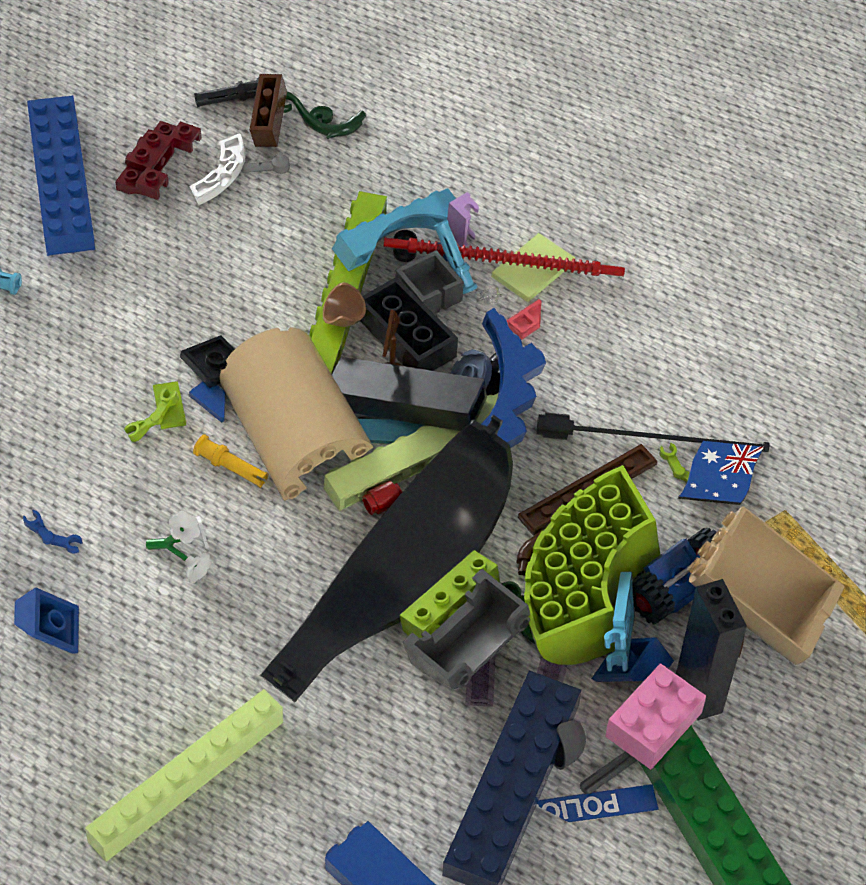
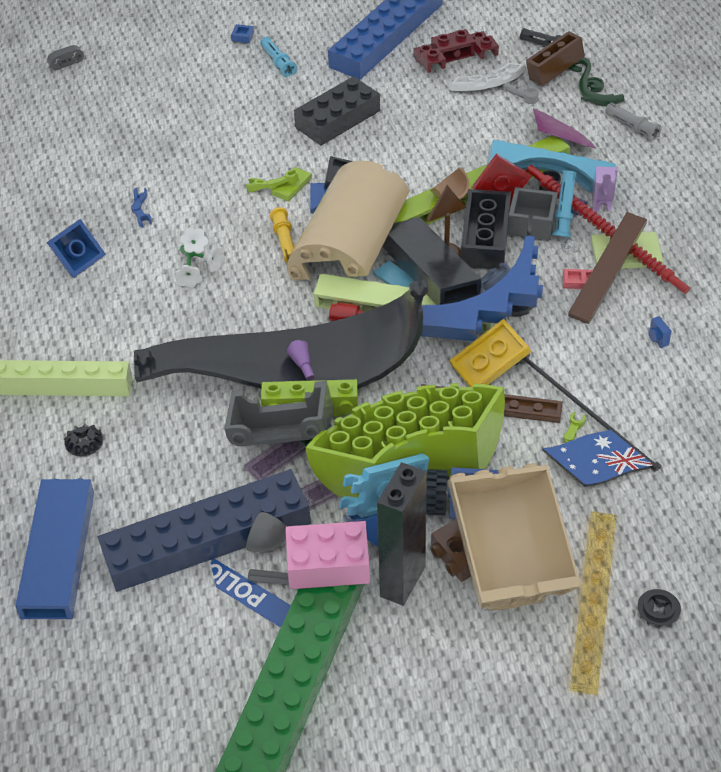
camera: 50 degrees right, 5 degrees down
(124, 298) = (337, 110): none -> black brick
(291, 804) = (85, 447): none -> black gear
(350, 184) = (557, 128): none -> magenta sticker
(376, 267) = (501, 176): none -> red plate
(397, 565) = (299, 353): none -> medium lavender cone
(410, 133) = (639, 124): none -> light grey pin
(548, 295) = (607, 268): none -> reddish brown tile
(548, 446) = (490, 355): none -> yellow tile
(646, 325) = (659, 332): none -> blue plate

